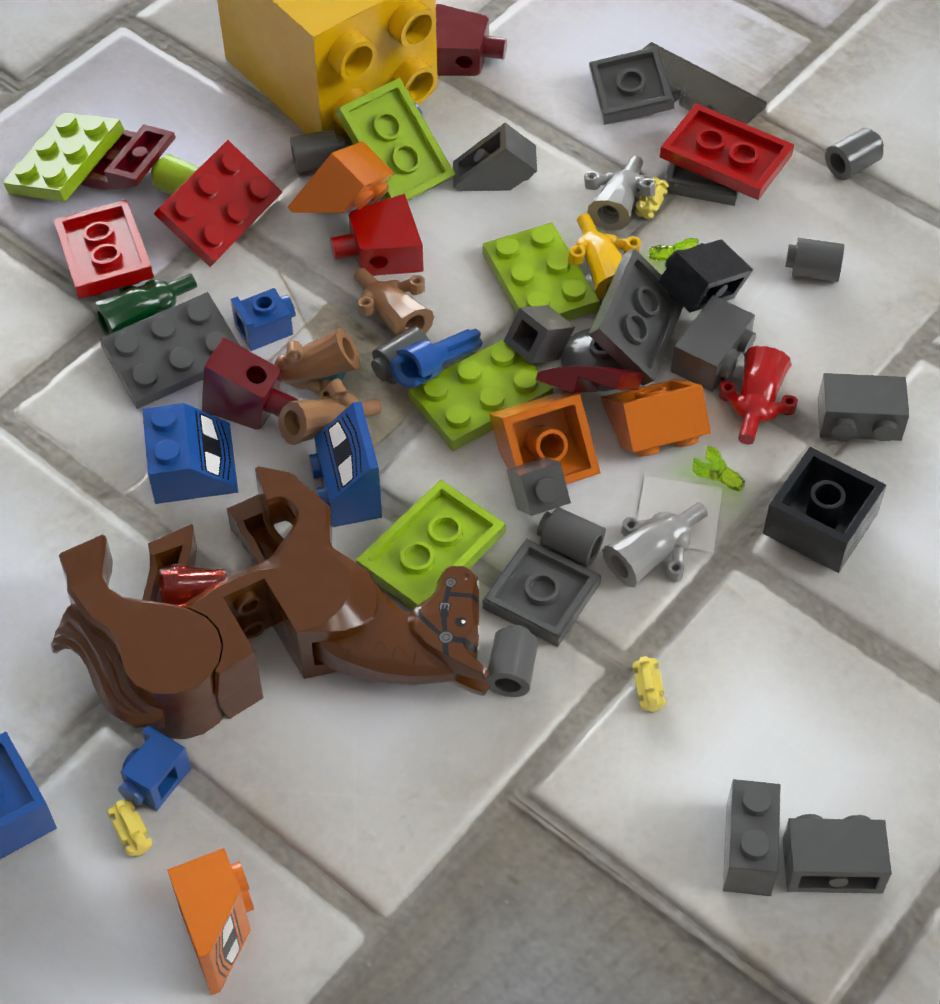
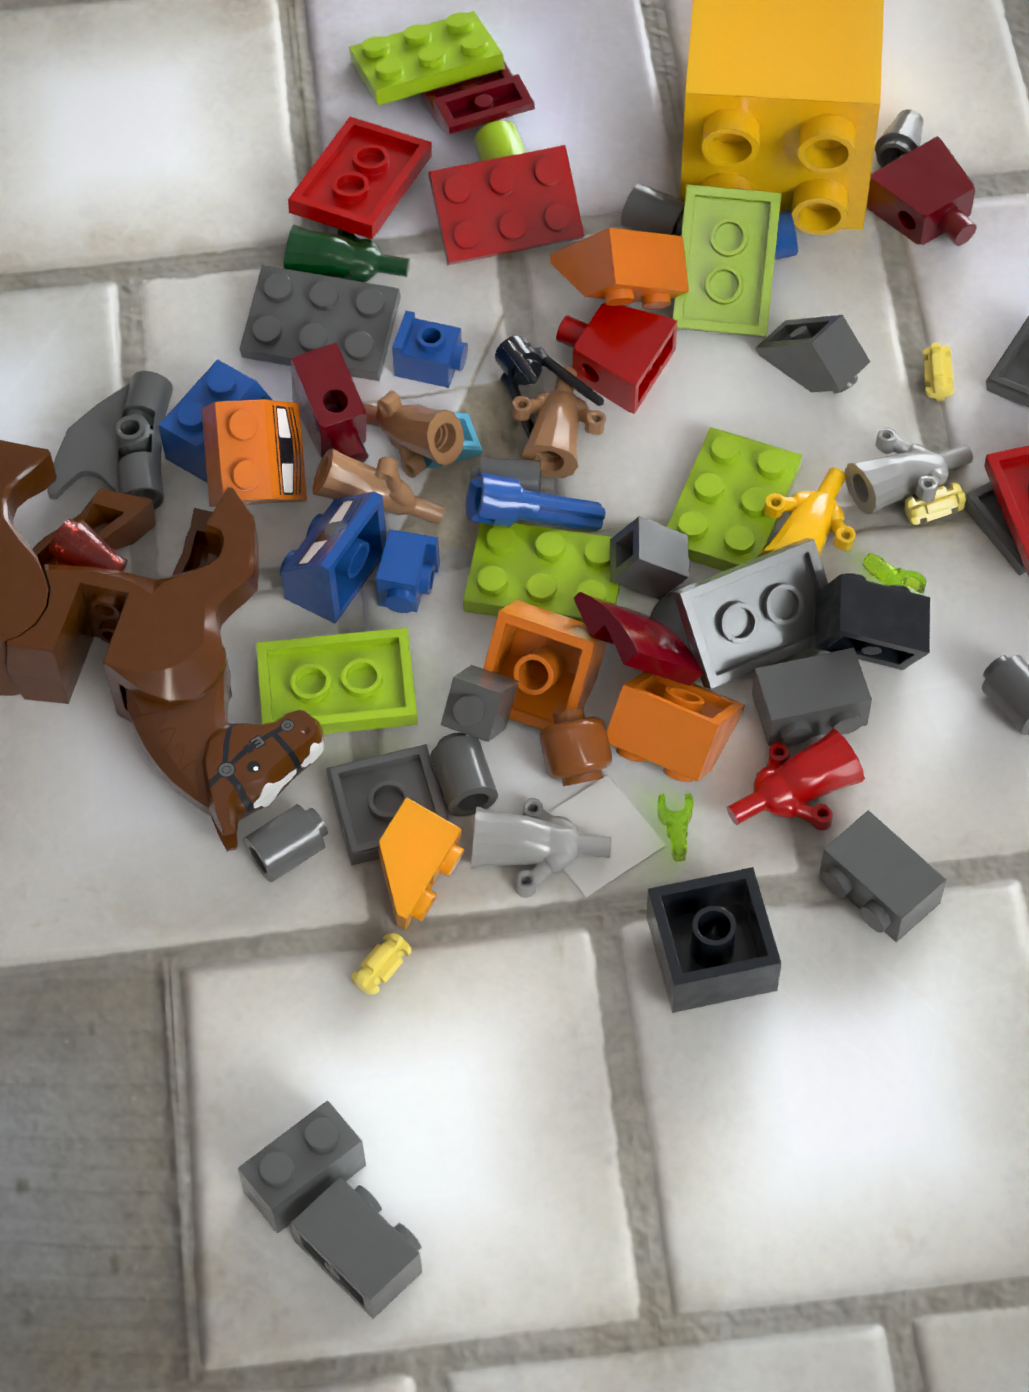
camera: 45 degrees right, 5 degrees up
(121, 505) = (119, 441): none -> dark grey pin
(226, 449) = (254, 451): none -> orange slope
(334, 282) = (524, 365): none -> black plant
(399, 449) = (406, 570): none -> blue brick
(571, 129) = (938, 372): none -> light yellow piece
(606, 605) = (413, 856): none -> light orange slope
(621, 468) = (575, 747): none -> dark orange head

